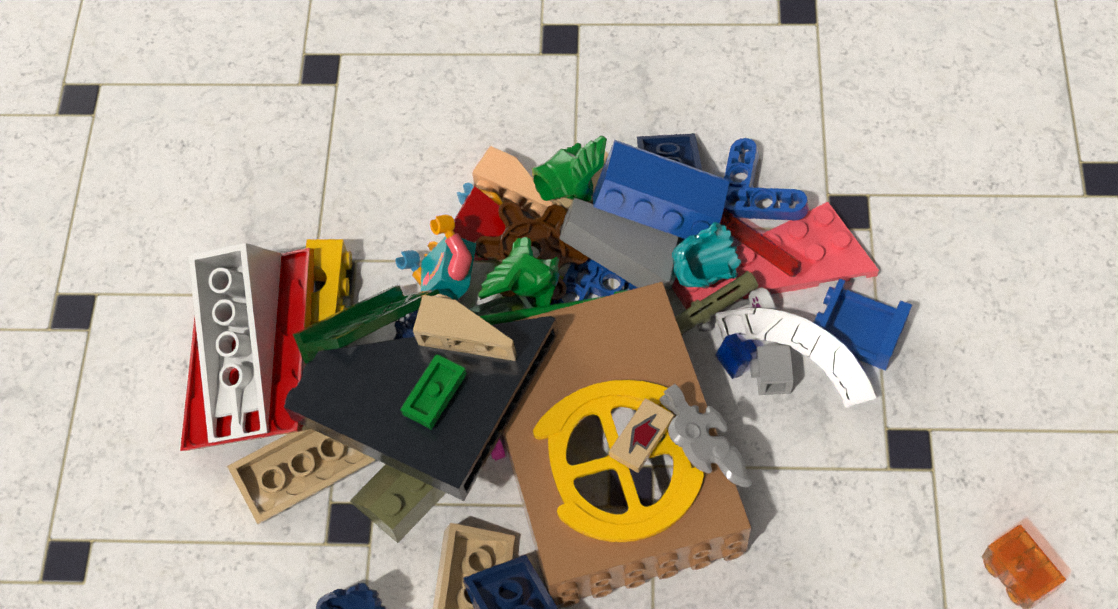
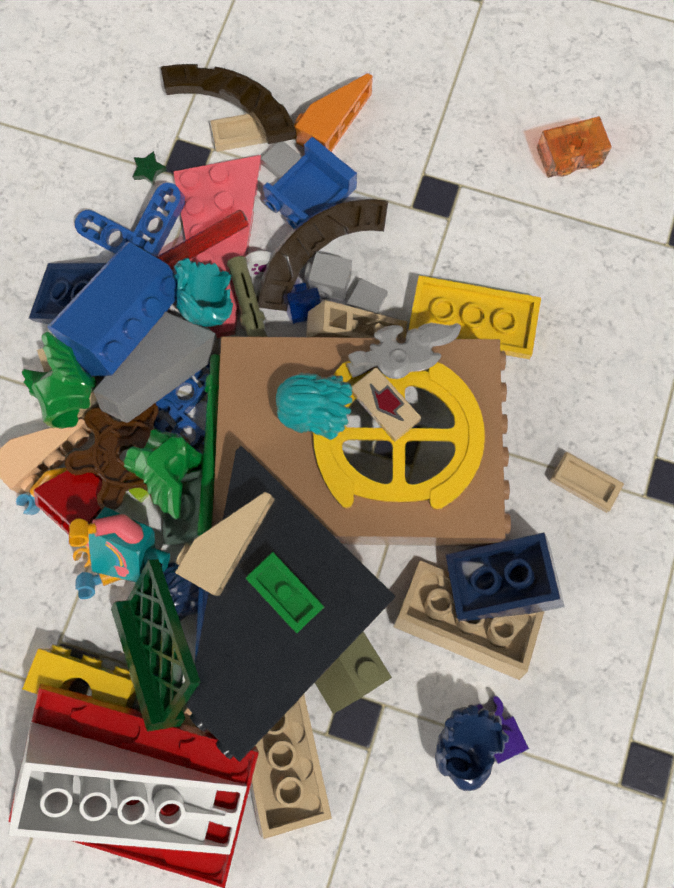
camera: 75 degrees left, 15 degrees up
(619, 369) = (314, 404): none -> teal hair
(724, 393) = (343, 321): none -> tan slope
(765, 413) = (367, 296): none -> light grey tile
(785, 520) = (480, 312): none -> yellow plate
(824, 181) = (148, 168): none -> dark green piece
(884, 289) = (280, 159): none -> light grey tile
(900, 247) = (236, 132): none -> tan tile
(940, 228) = (234, 88): none -> dark brown tile
(948, 320) = (333, 114): none -> orange slope

